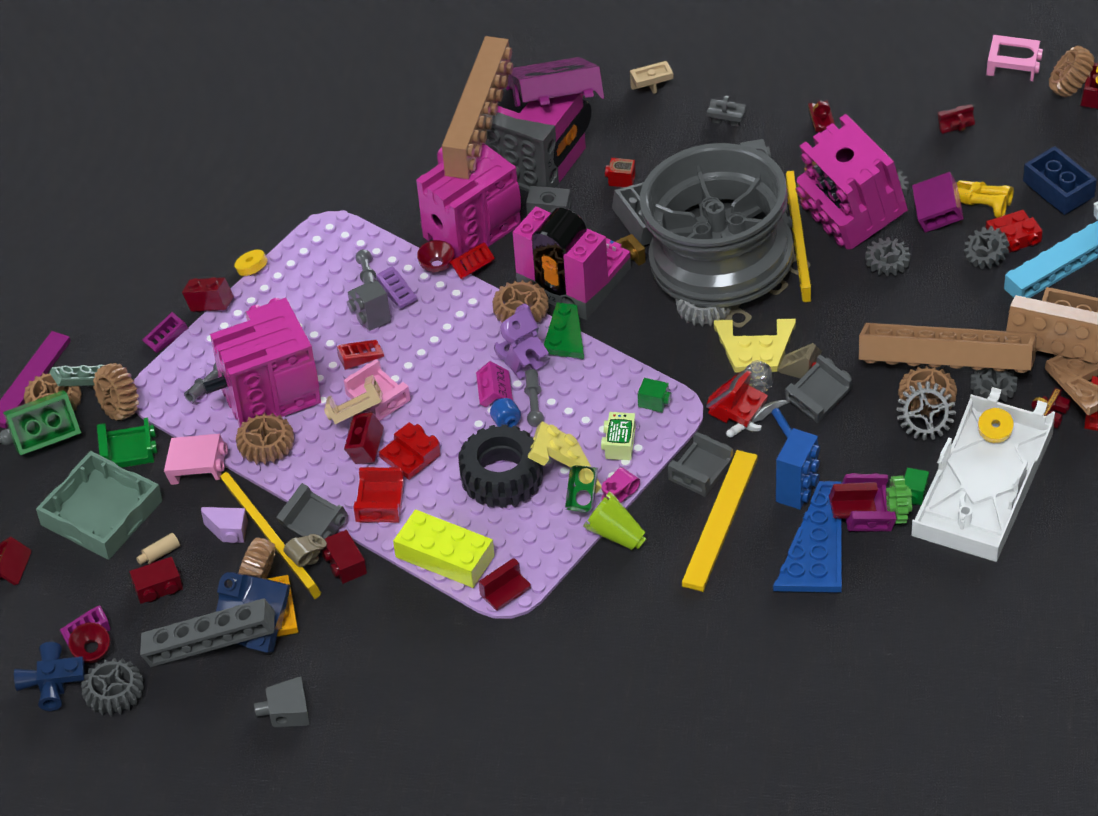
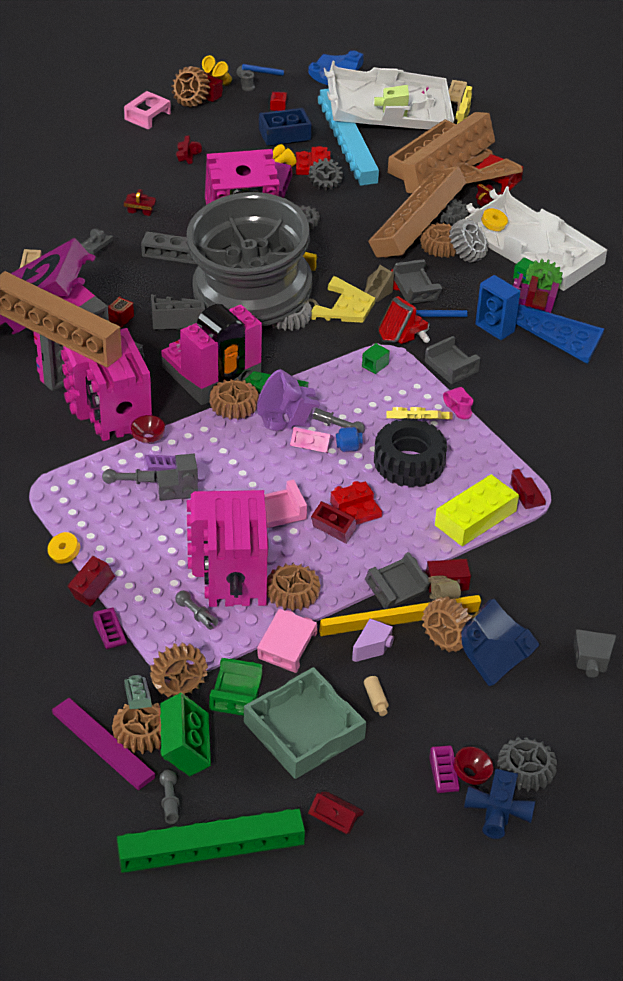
camera: 75 degrees left, 5 degrees down
(156, 580) = (415, 704): dark red brick -> none
(207, 632) = (499, 723): dark grey brick -> none
(356, 405) = (297, 511): tan panel -> none
(379, 495) = (395, 535): red panel -> none
(481, 253) = (163, 411): red slope -> none
(571, 501) = (460, 414): green piece -> none
(615, 523) = (492, 412): lime cone -> none
(619, 436) = (408, 386): brick -> none
(719, 521) = (512, 370): yellow tile -> none
(761, 375) = (380, 306): clear head -> none

